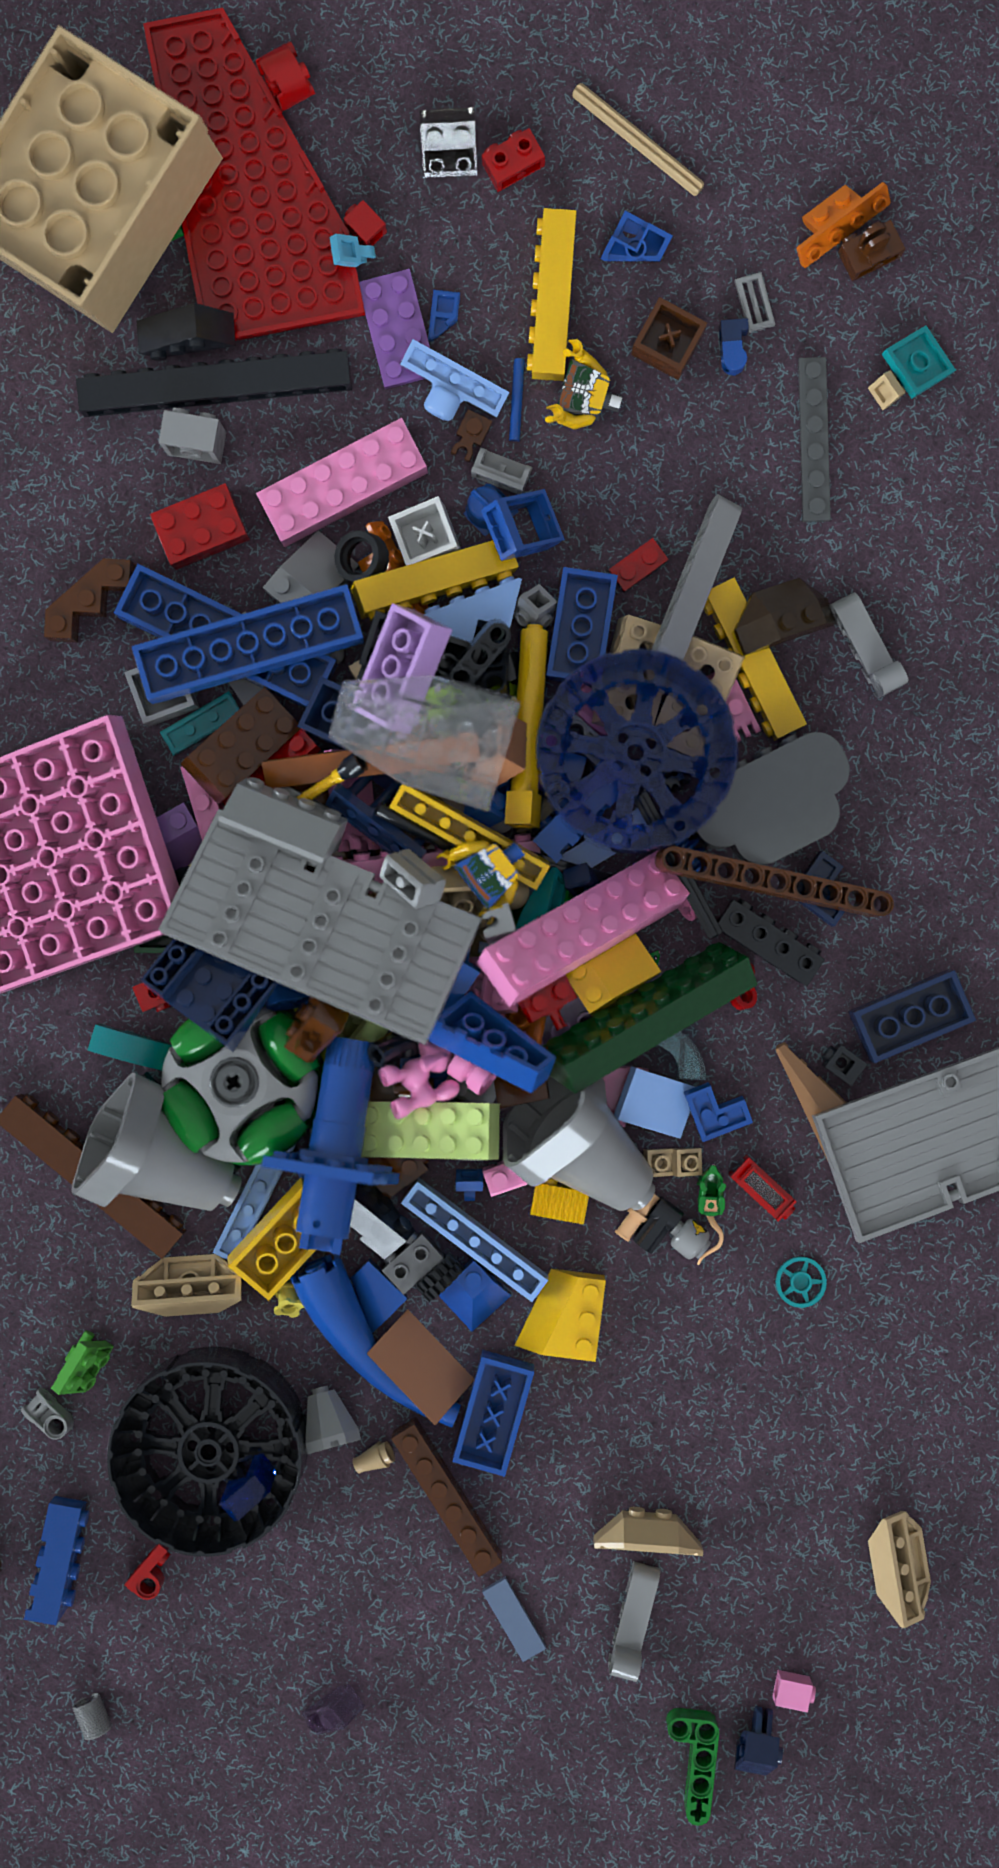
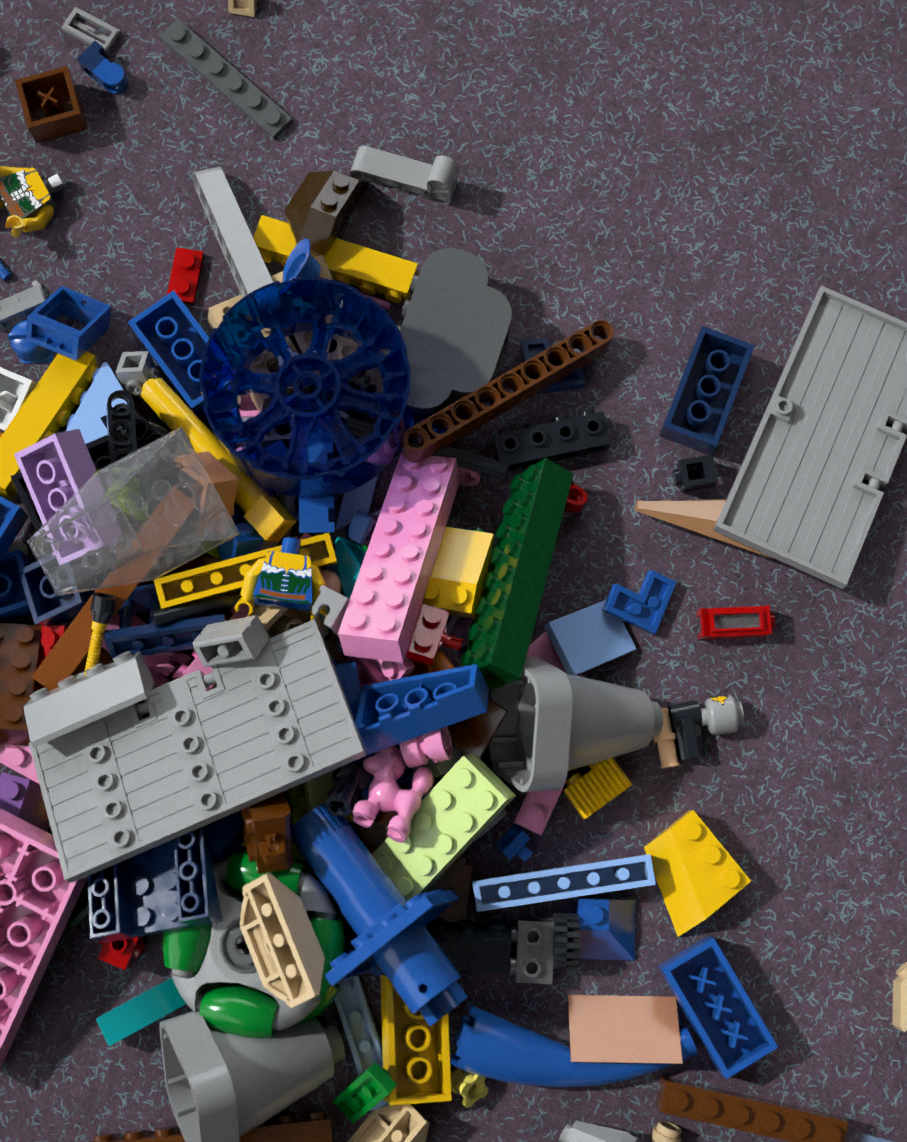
camera: 50 degrees left, 10 degrees down
(219, 1241) = (364, 1092): none -> green plate
(257, 1106) = (281, 940): none -> tan wedge
(376, 1294) = (532, 1007): blue slope -> none
(674, 1161) = (651, 669): tan slope -> none
(687, 1057) = (574, 581): clear light blue arch -> none
(711, 1202) = (708, 670): green animal -> none
(716, 656) = (301, 263): none -> blue piece
(801, 1282) = (835, 664): teal wheel -> none

